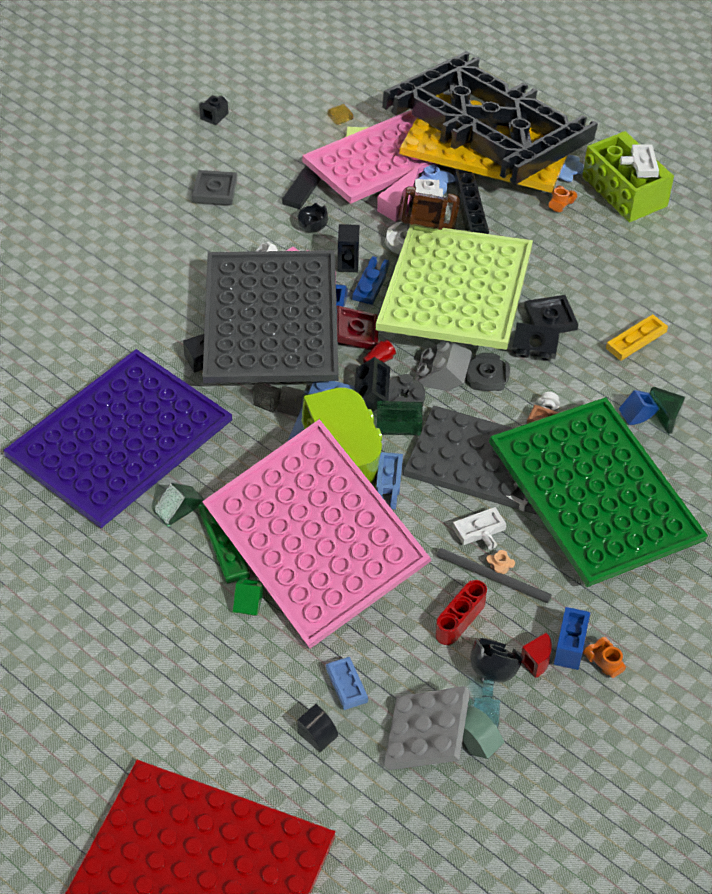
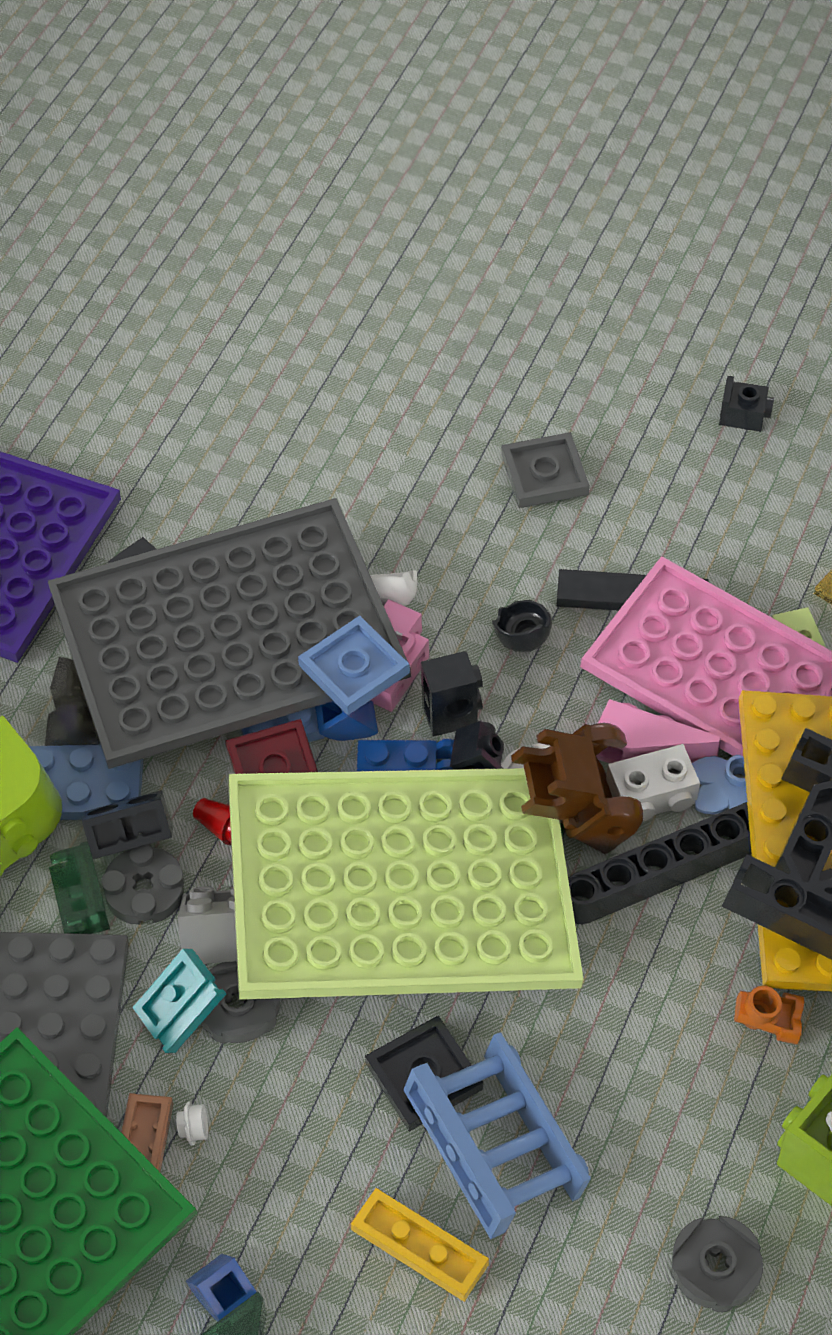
camera: 75 degrees right, 5 degrees up
(328, 264) = (353, 665): none -> medium blue plate
(385, 249) = (477, 746): none -> black brick
(484, 387) = (179, 1000): none -> teal plate
(526, 332) = (330, 1058): black brick -> none
(595, 305) = (473, 1166): none -> medium blue fence
(671, 257) = (717, 1288): none -> dark grey plate

